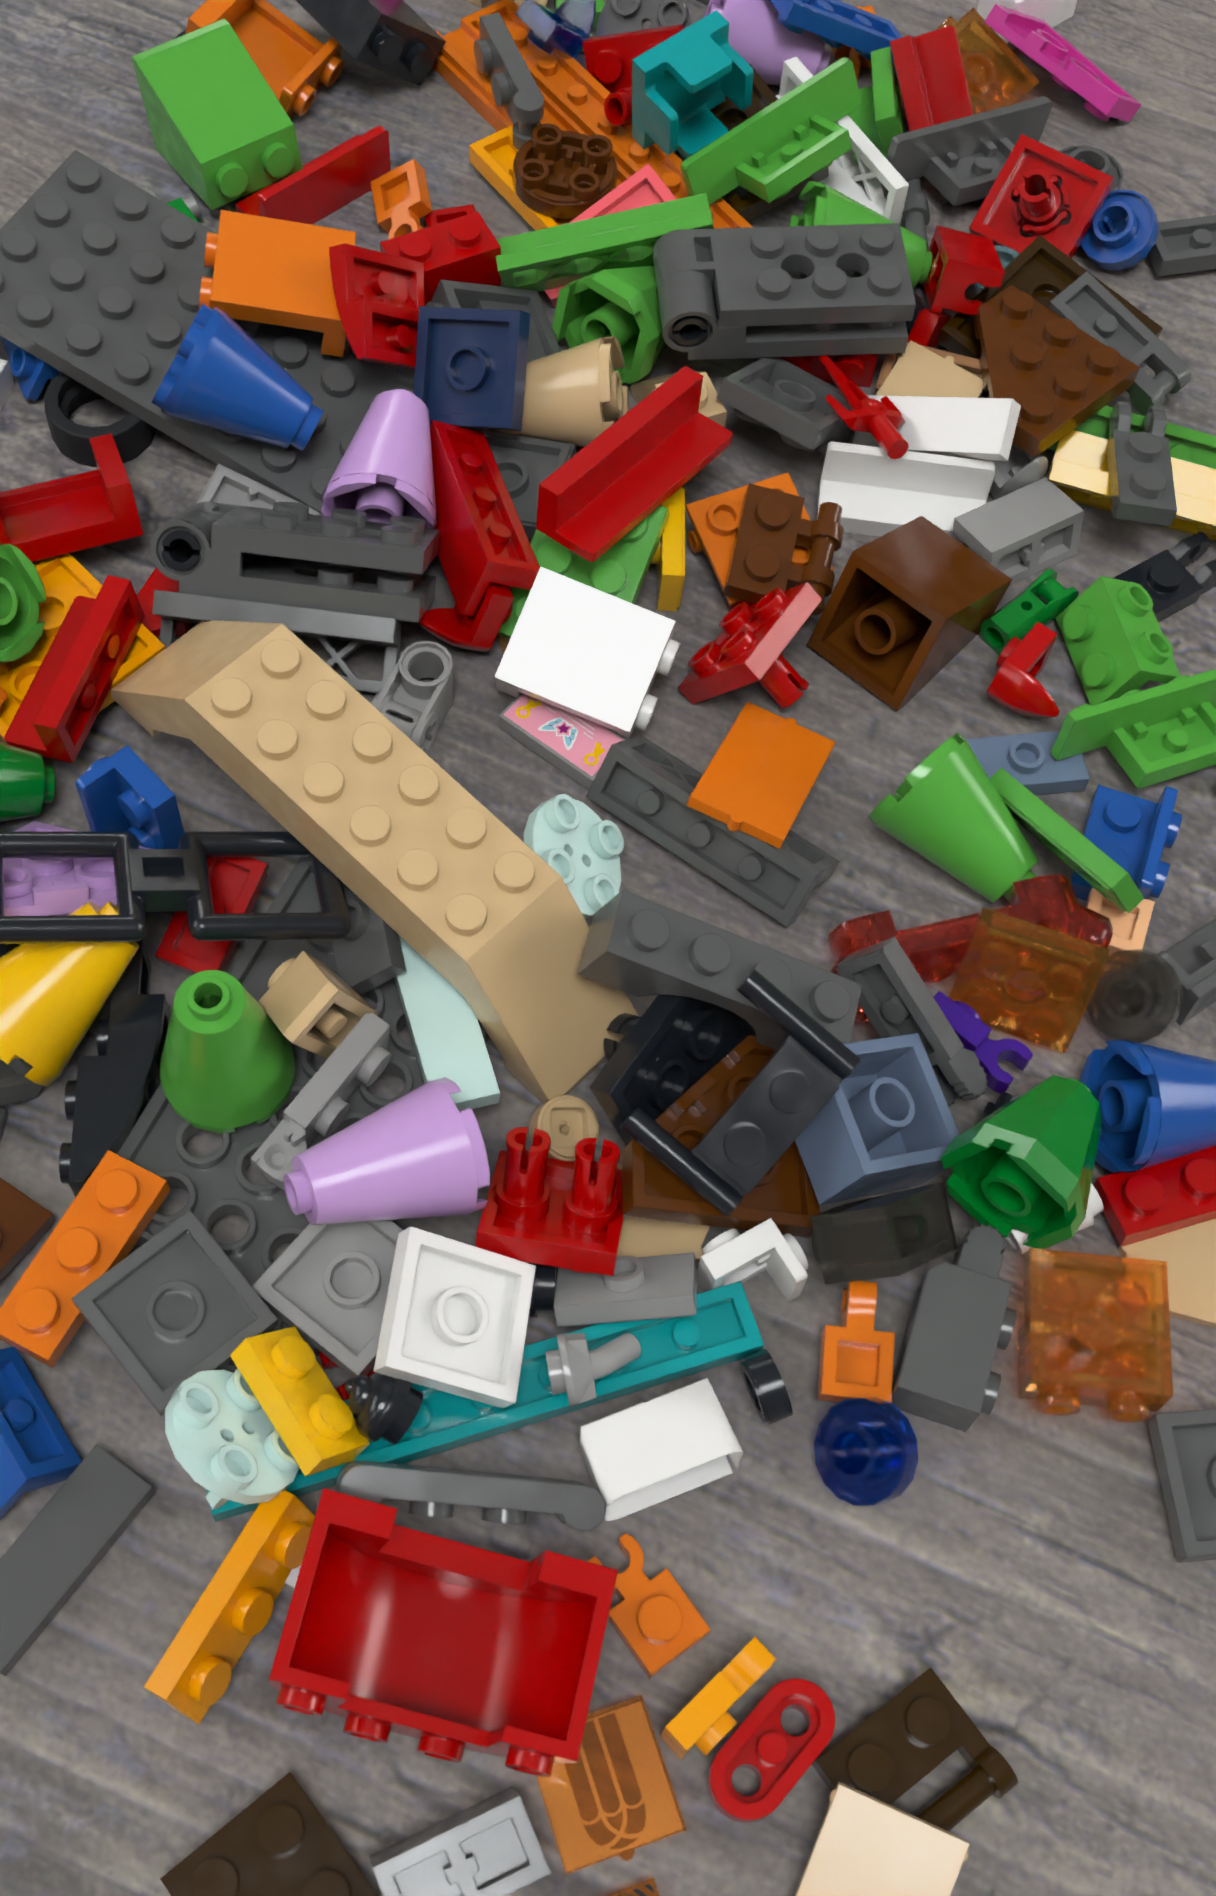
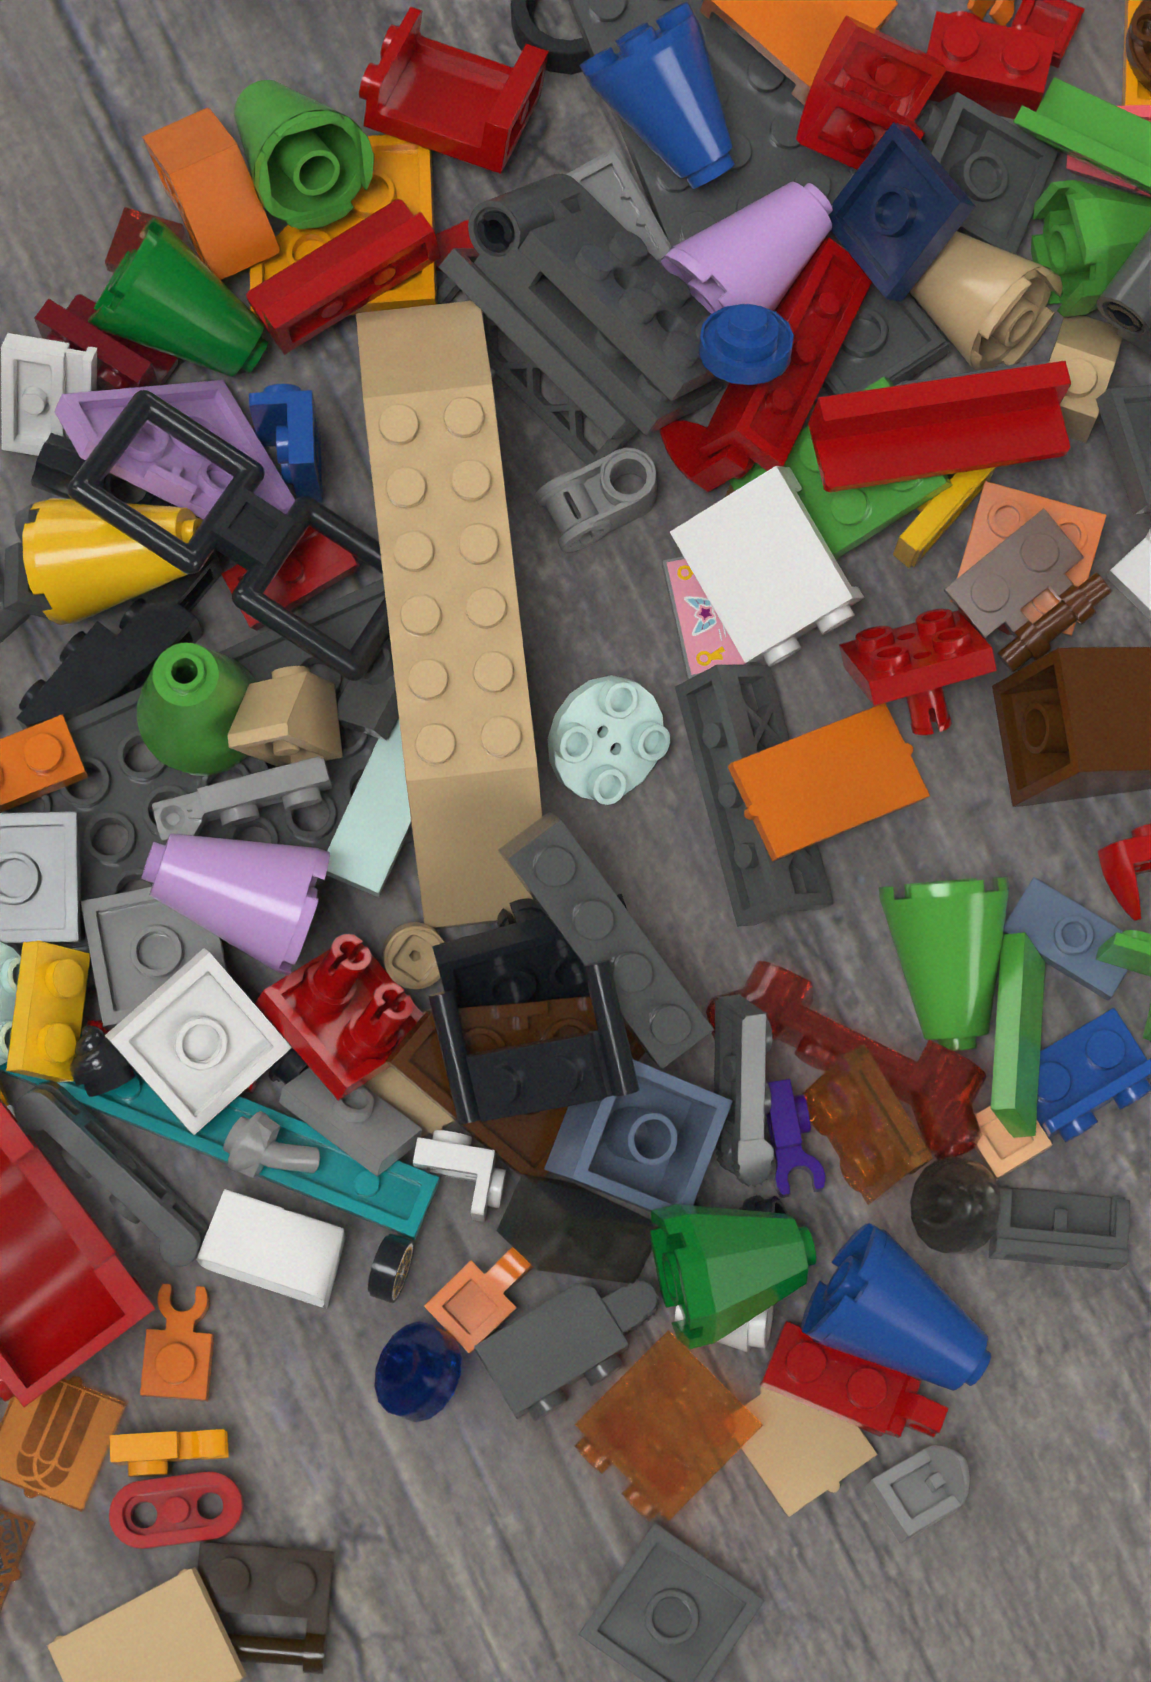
camera: 45 degrees right, 15 degrees up
(445, 497) = (746, 344): none -> blue plate

